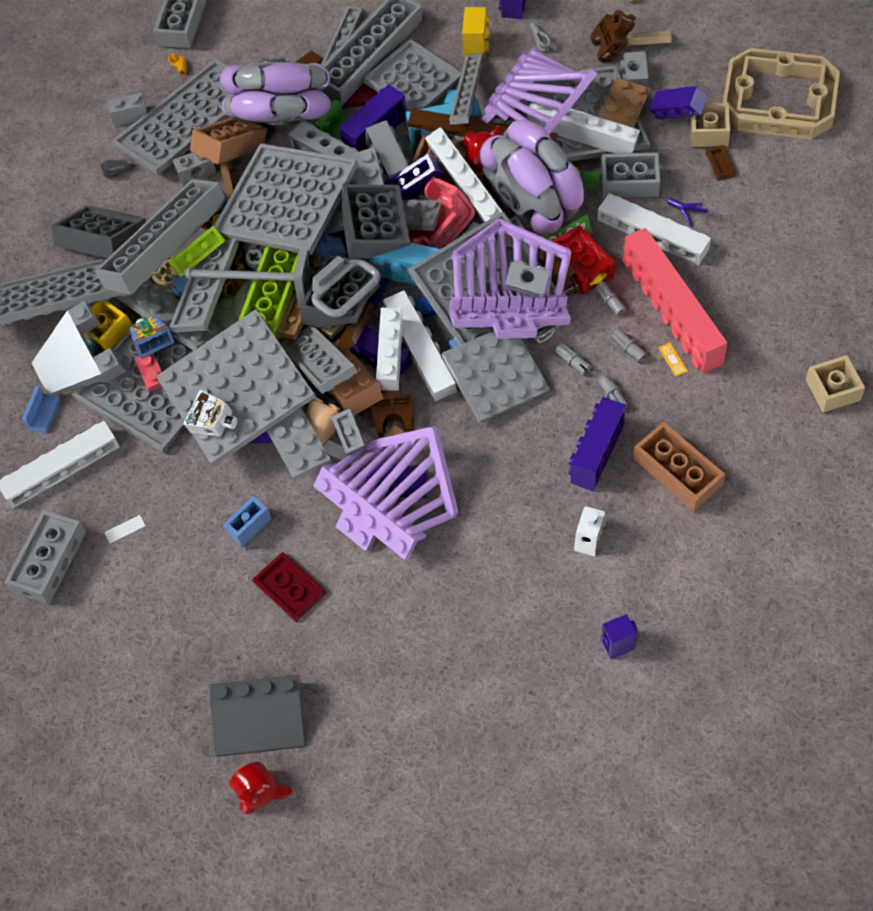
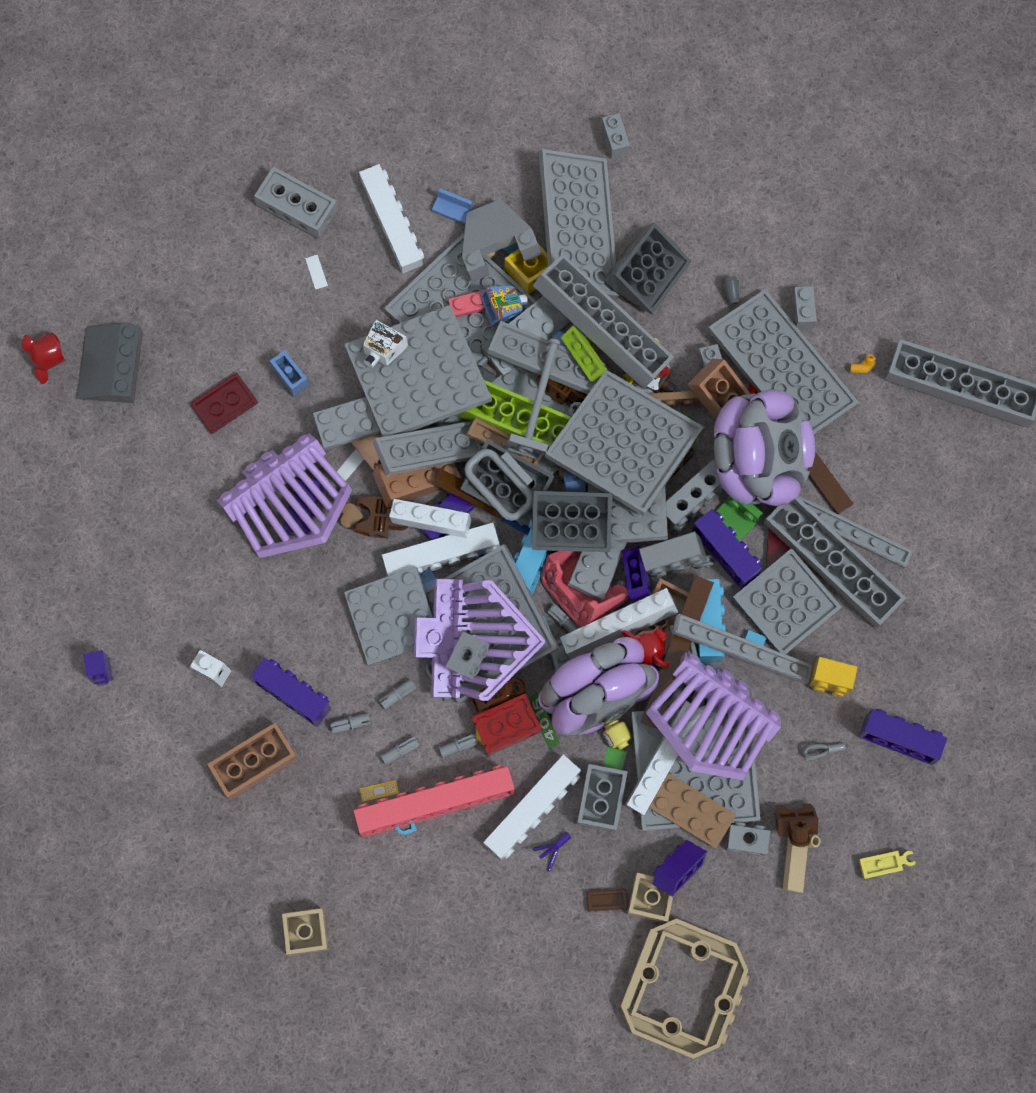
camera: 90 degrees right, 15 degrees up
(348, 431) = (351, 469): light grey plate -> none

